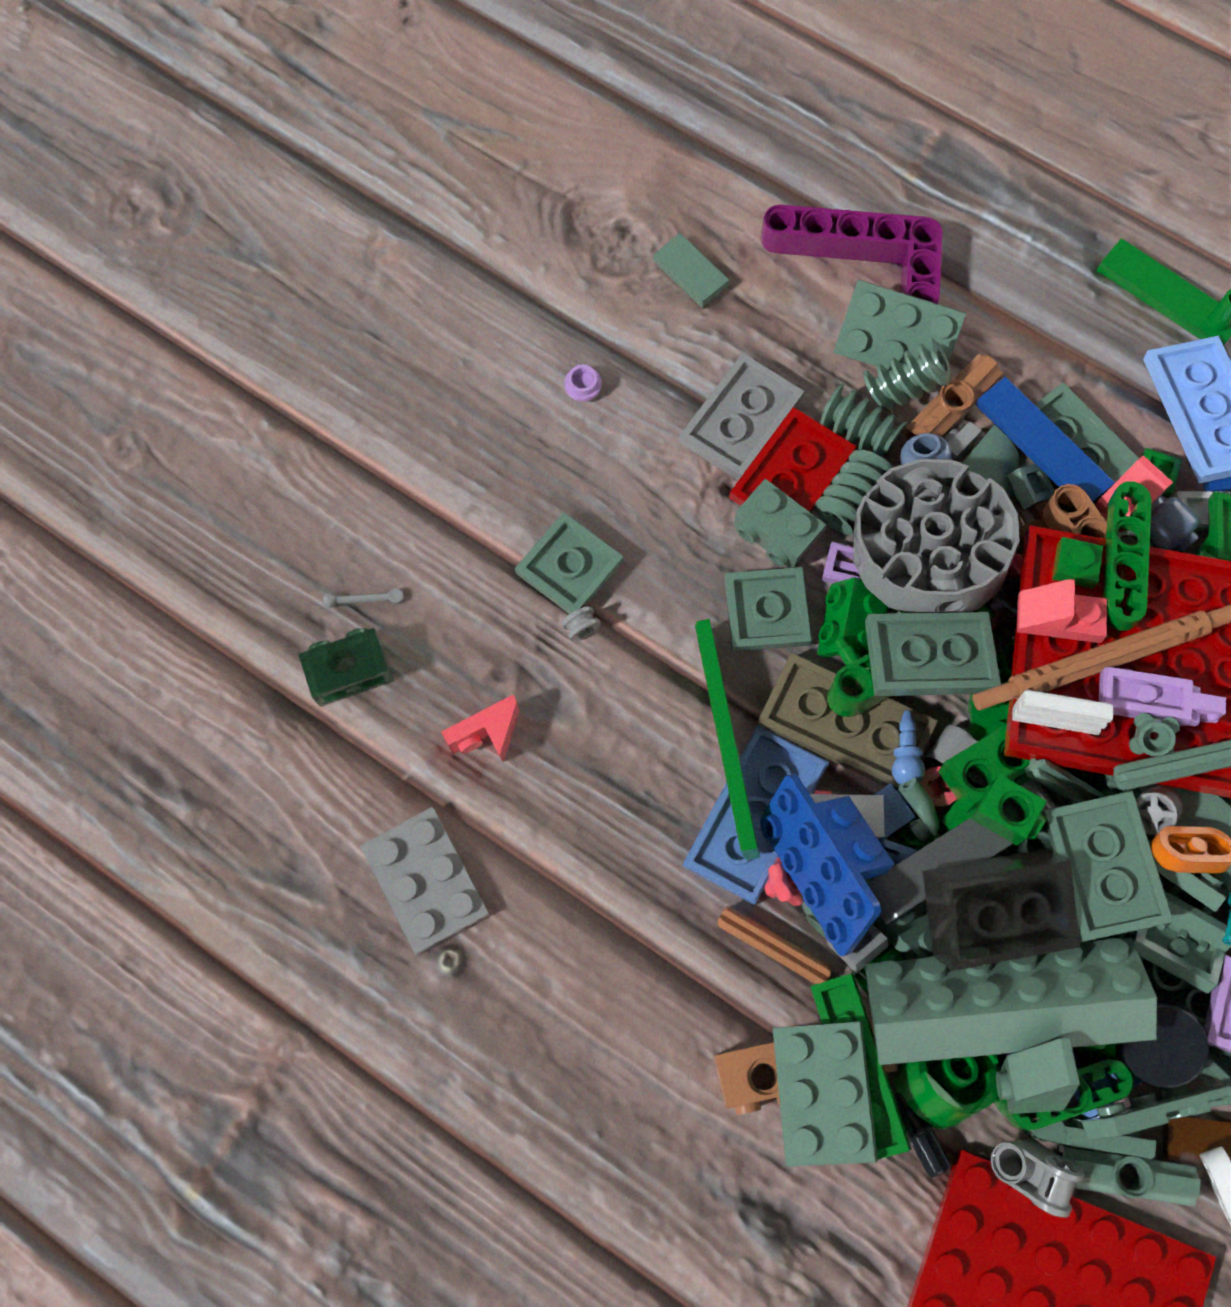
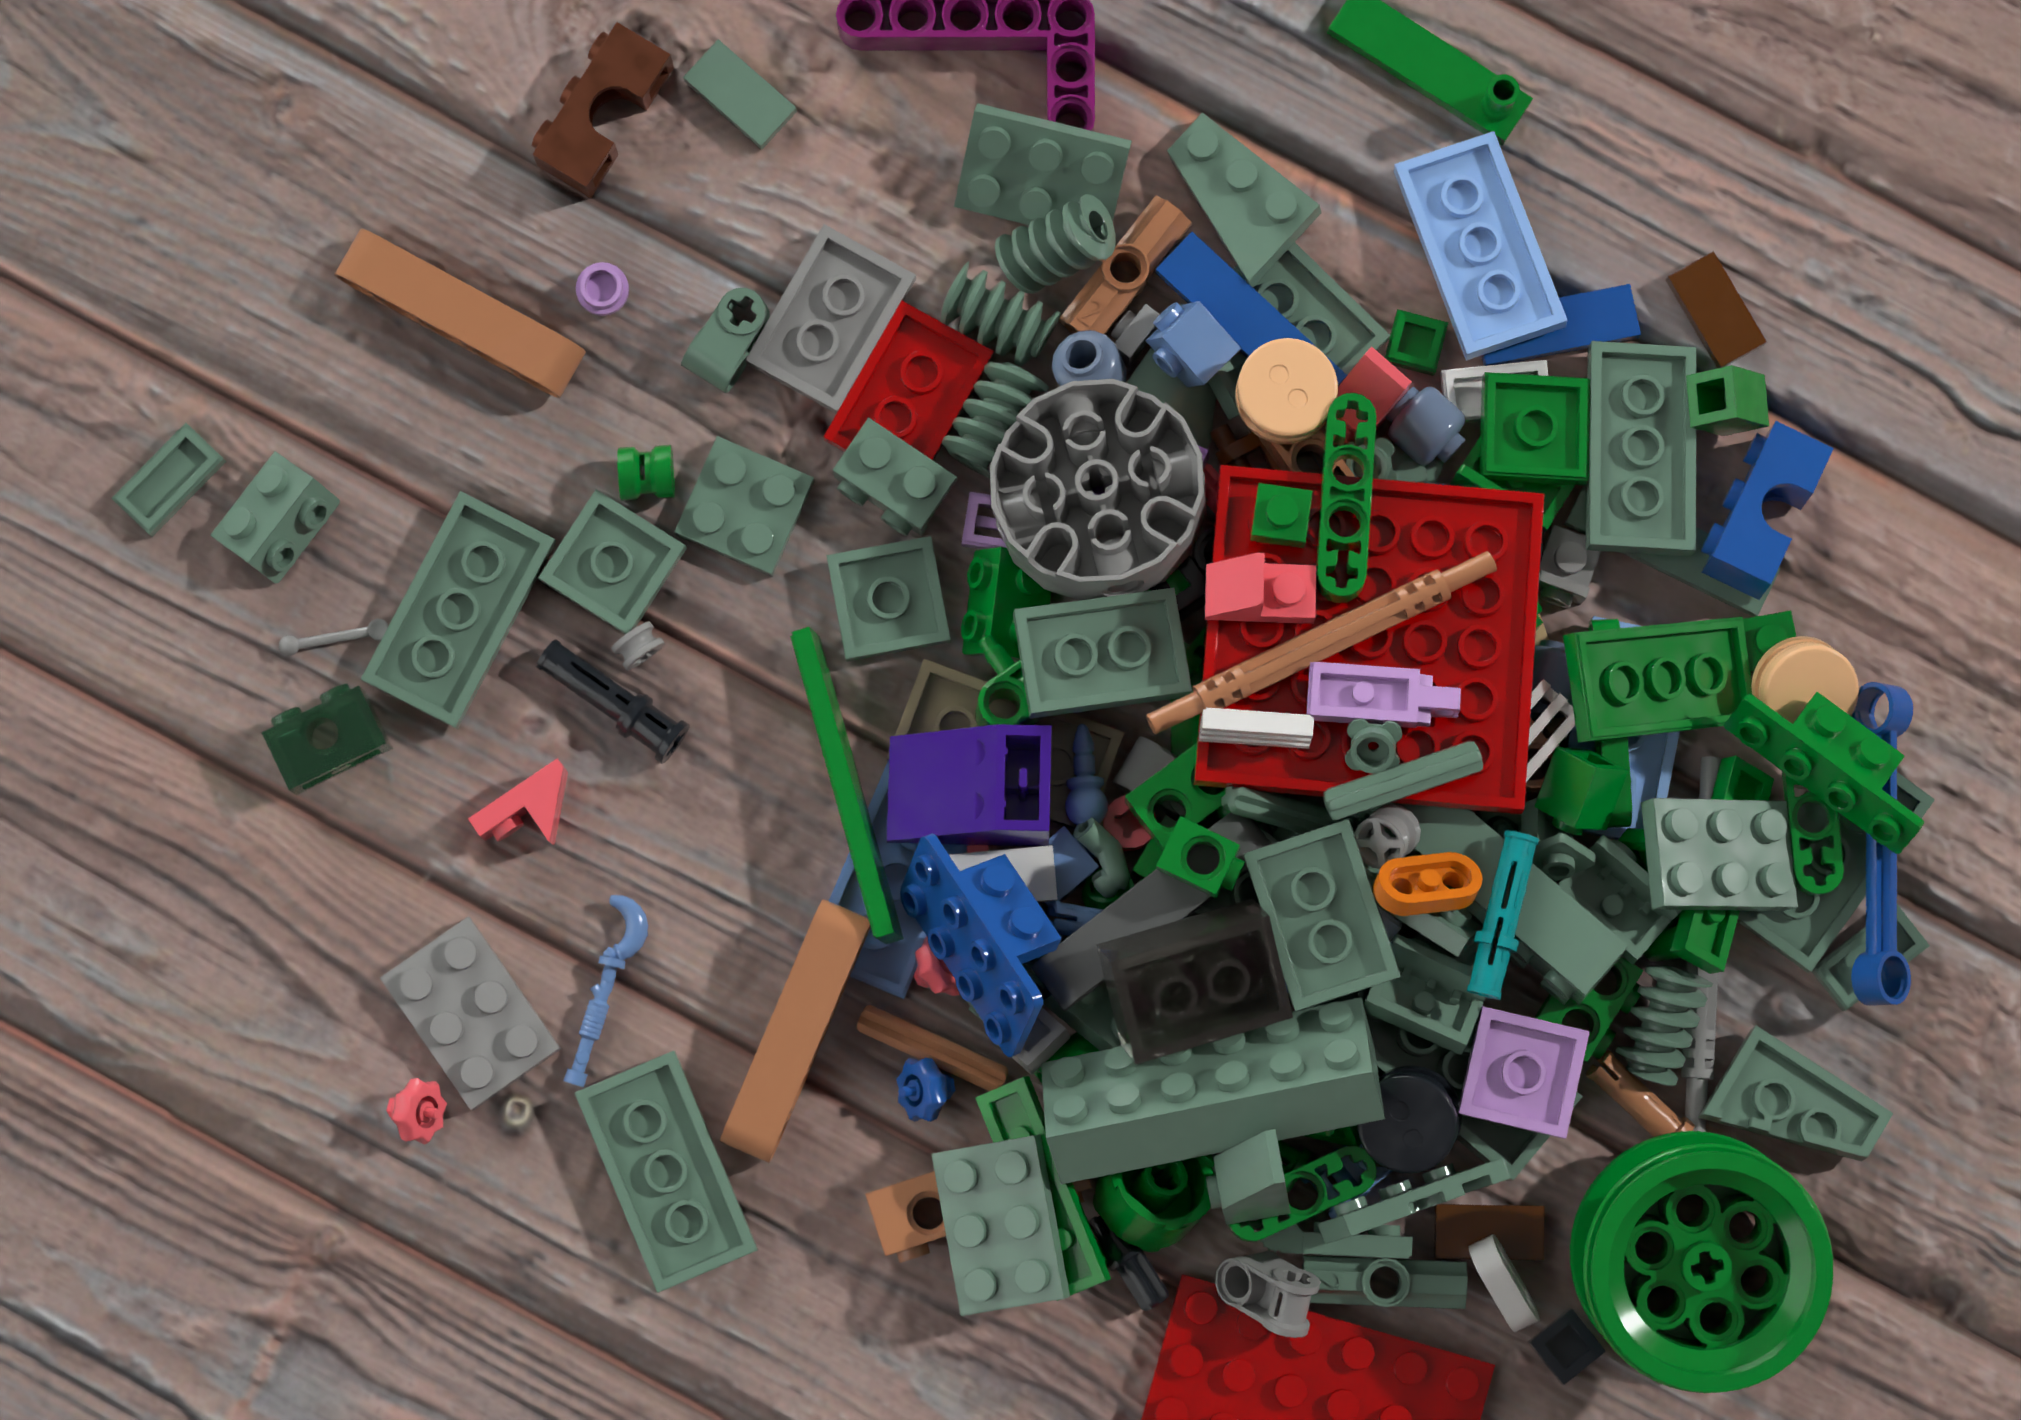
camera: 10 degrees left, 10 degrees up
(263, 480) = (168, 479): none -> sand green tile
(334, 511) = (276, 517): none -> sand green bracket
(374, 950) = (418, 1110): none -> coral piece
(454, 587) = (458, 610): none -> sand green plate
(483, 388) = (460, 313): none -> nougat beam
(537, 851) = (612, 958): none -> medium blue piece
(559, 1021) = (666, 1171): none -> sand green plate
(571, 671) = (632, 713): none -> black pin
(609, 505) = (658, 472): none -> green wheel
(613, 245) = (620, 68): none -> copper arch
(663, 424) = (721, 346): none -> sand green piece
(668, 537) = (744, 506): none -> sand green plate
(670, 920) = (796, 1031): none -> nougat beam
(765, 976) = (923, 1089): none -> blue piece
(826, 744) = (971, 786): none -> dark purple slope
(1003, 448) = (1190, 343): none -> medium blue brick
(1042, 364) = (1242, 196): none -> sand green wing
(1079, 480) = (1286, 390): none -> light nougat head

